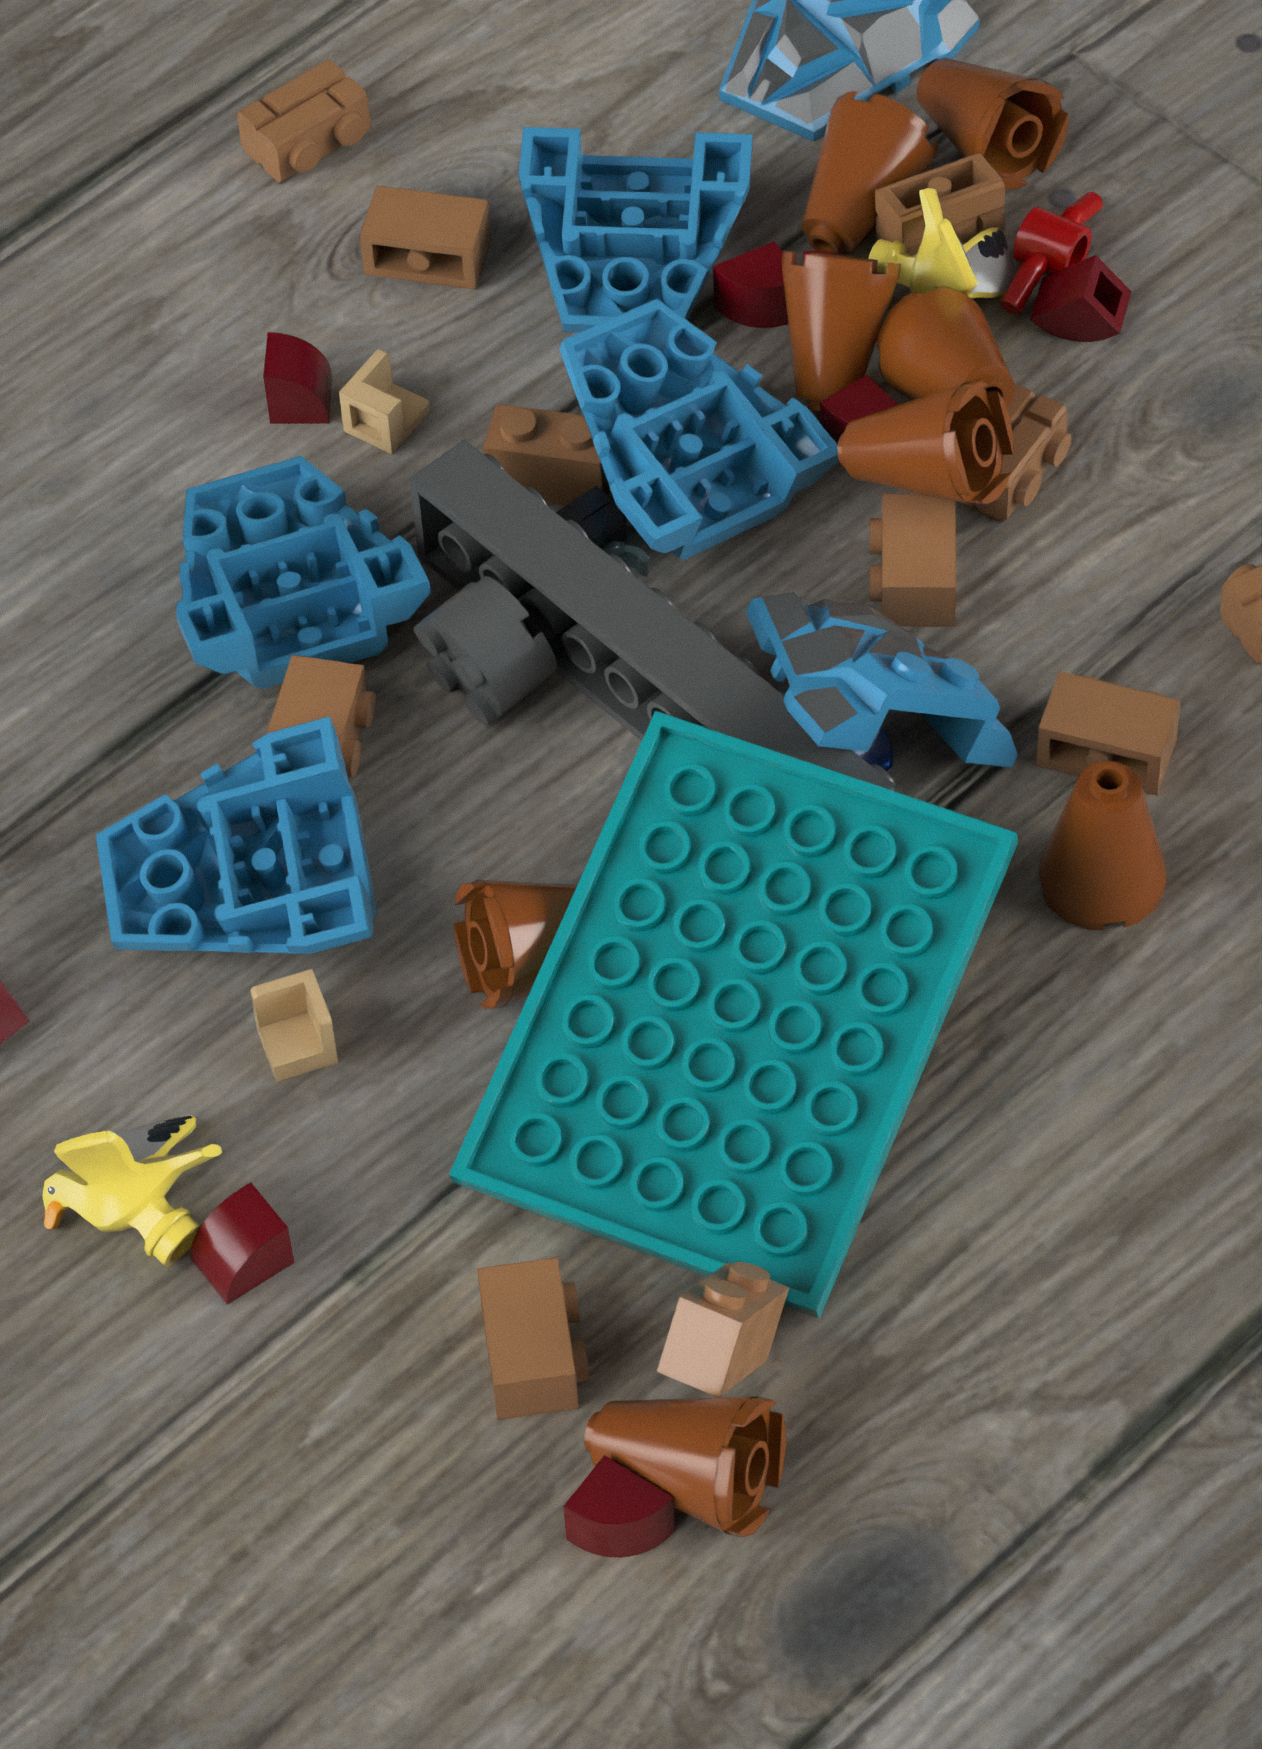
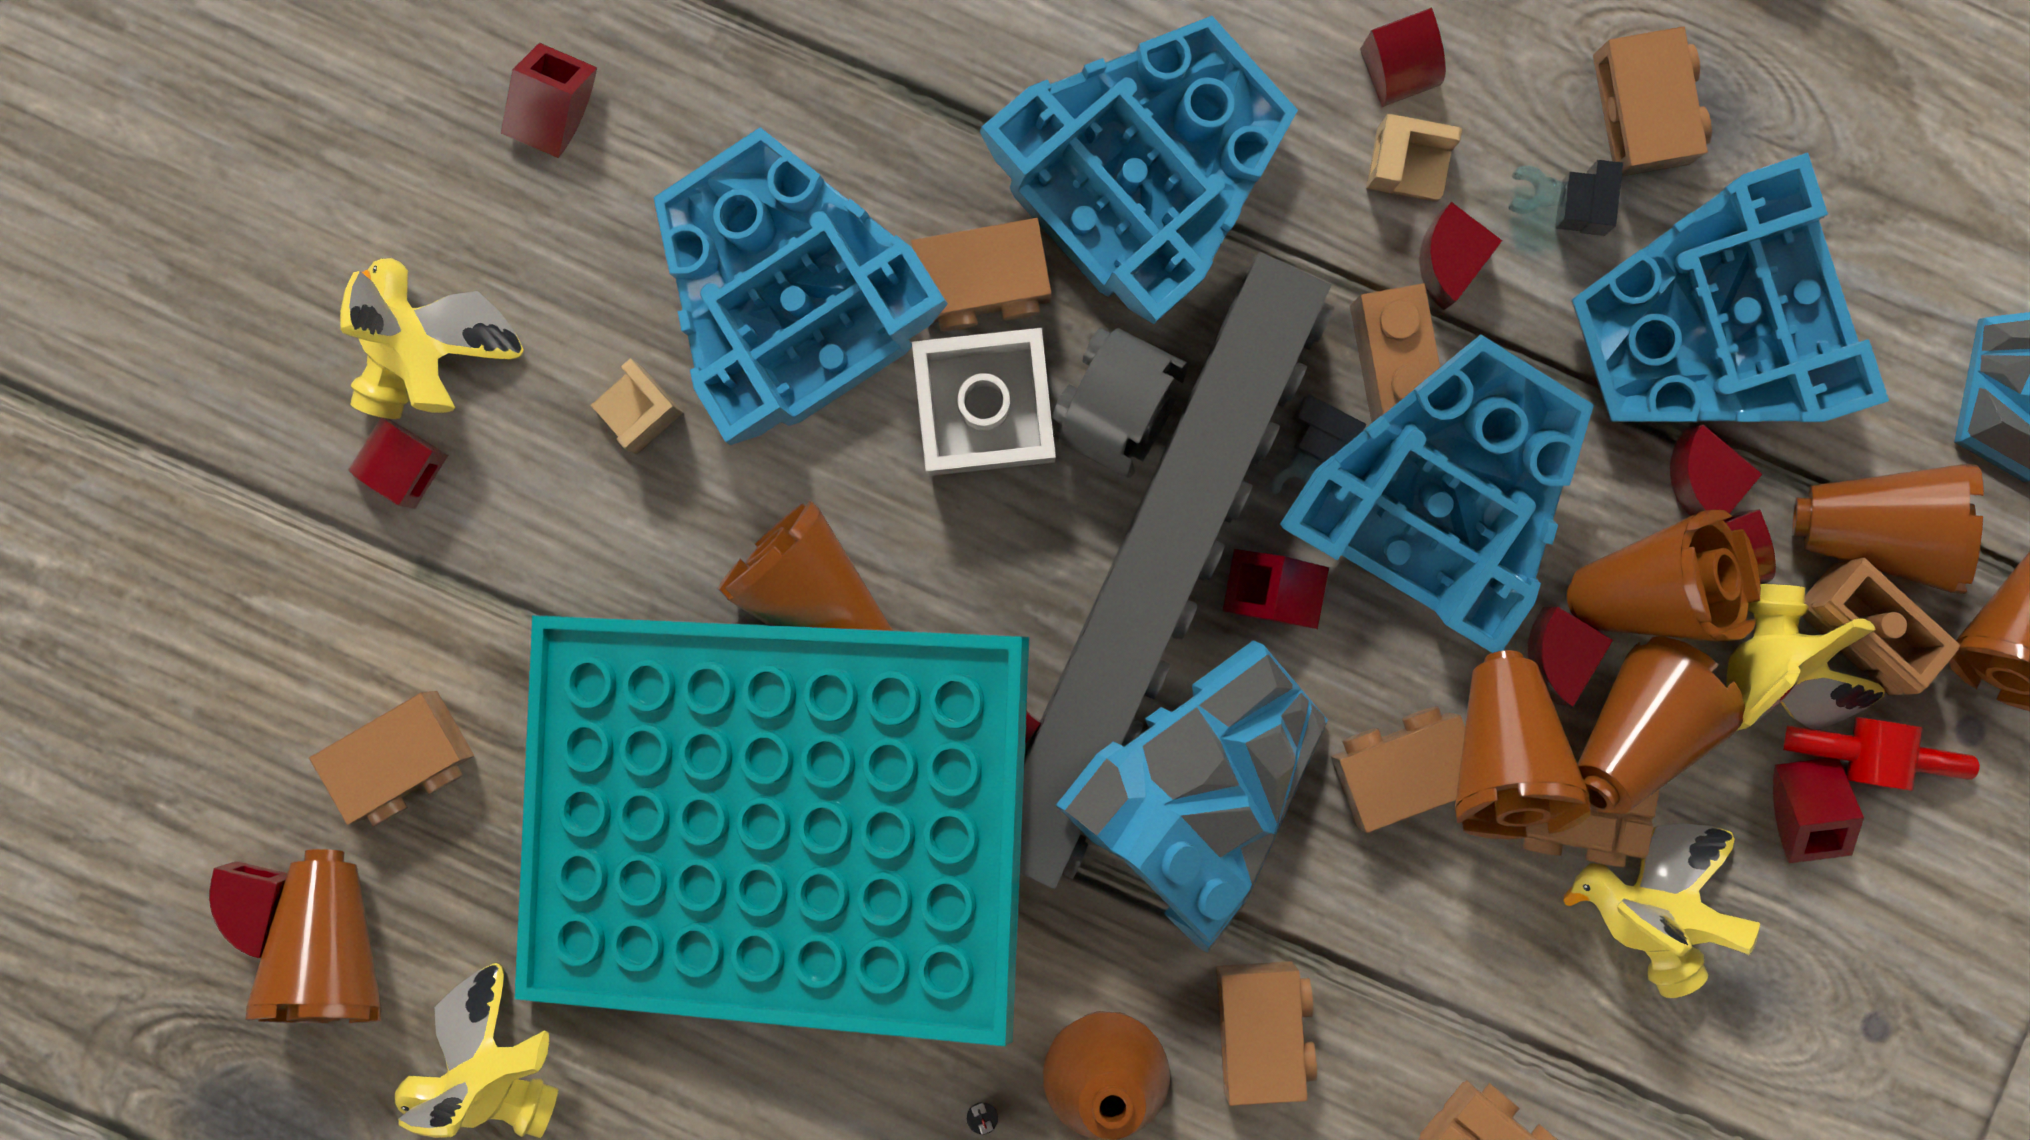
camera: 65 degrees right, 35 degrees up
(434, 750) = (983, 401): none -> white brick
(473, 389) = (1454, 254): none -> dark red brick
(485, 305) = (1583, 200): none -> black piece
(713, 601) = (1275, 588): none -> dark red brick
(723, 1328) = (434, 939): medium nougat brick -> none
(875, 1362) = (480, 1076): none -> light yellow animal
(1102, 982) = (982, 1118): none -> black piece
(1123, 419) = (1665, 906): none -> light yellow animal

